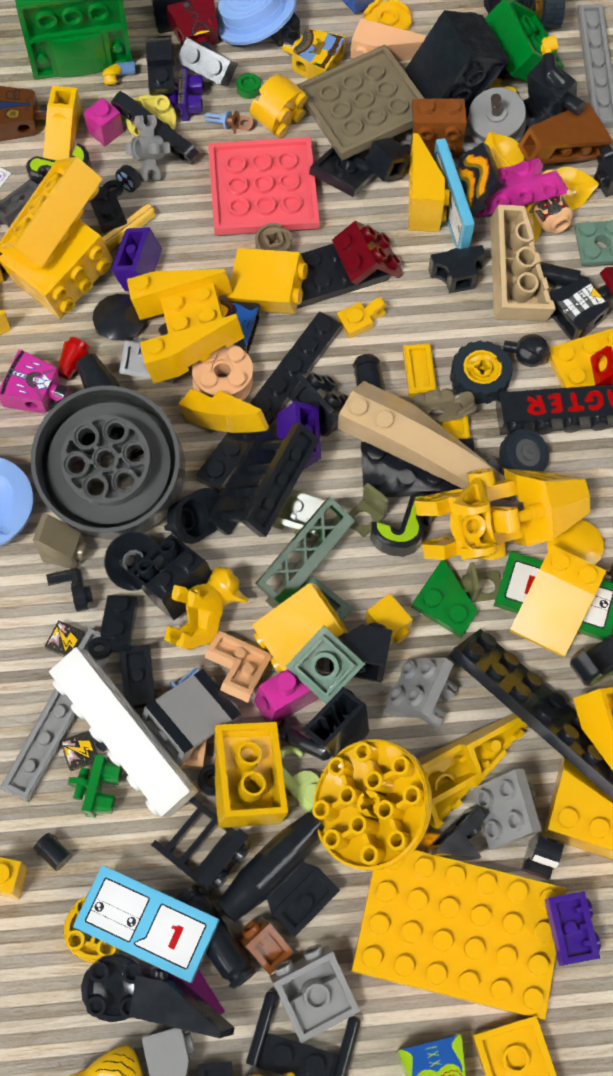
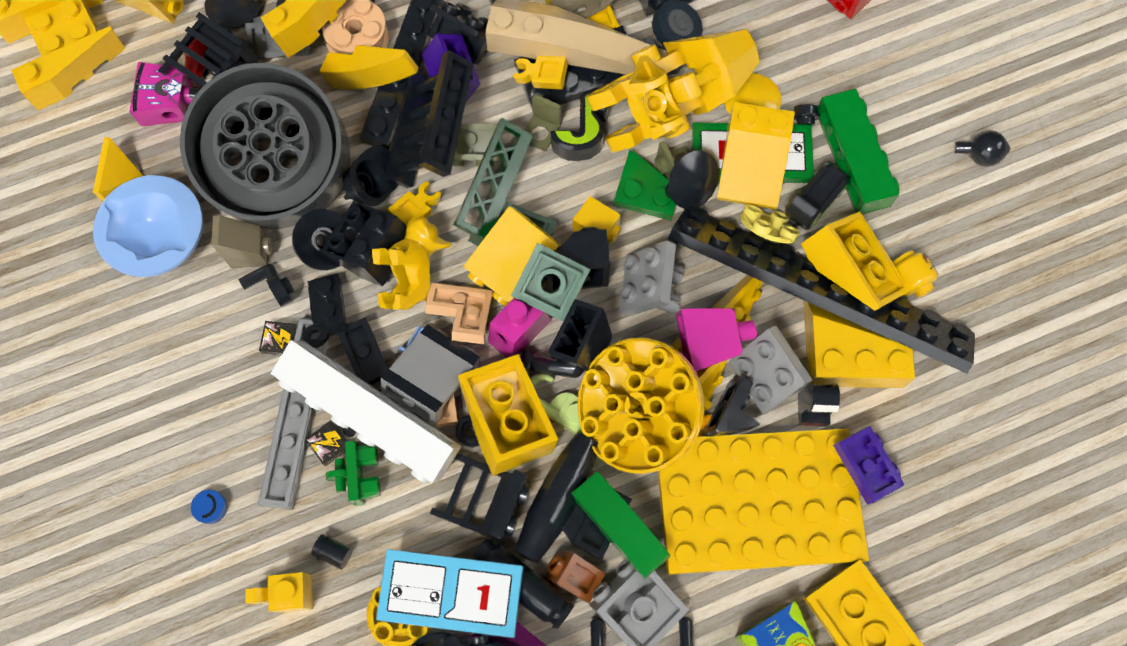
camera: 15 degrees left, 5 degrees up
(95, 349) = (217, 39): none -> black plate
(225, 555) = (414, 206): none -> yellow plate
(320, 910) = (620, 525): none -> green slope
(383, 465) = (546, 73): none -> yellow plate
(460, 760) = (712, 335): none -> dark pink torso
(491, 605) = (692, 179): none -> black dish
(550, 671) = (769, 226): none -> light yellow dish

